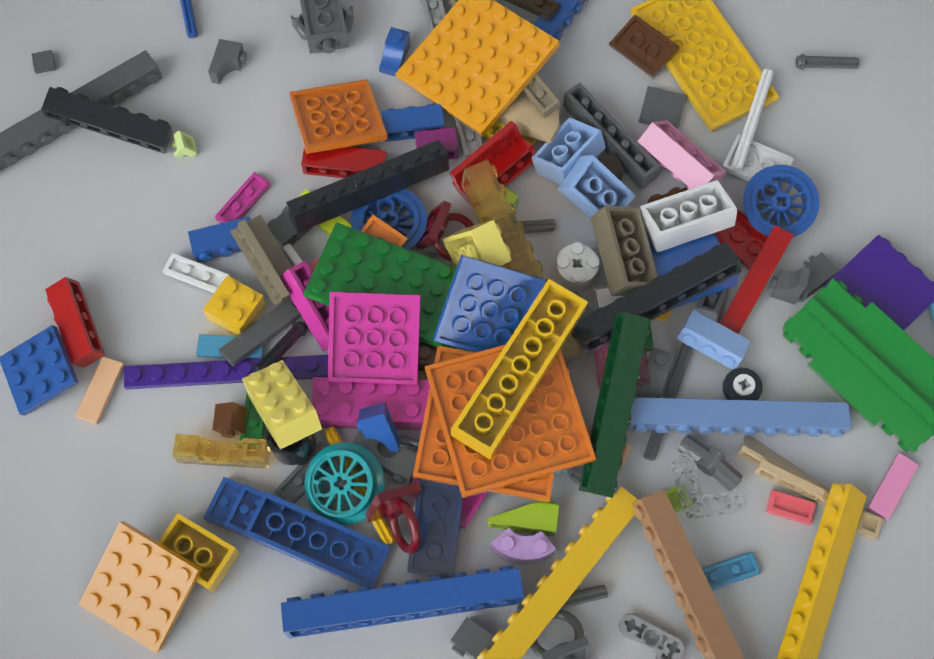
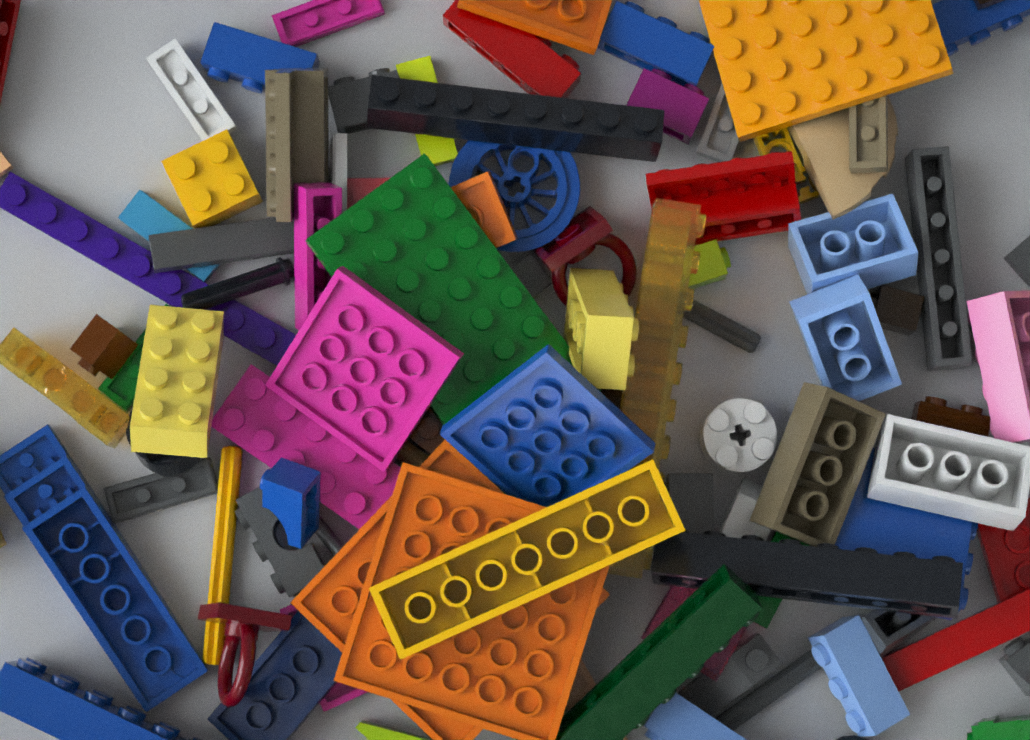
camera: 35 degrees right, 15 degrees up
(313, 483) = (240, 521): teal piece -> none

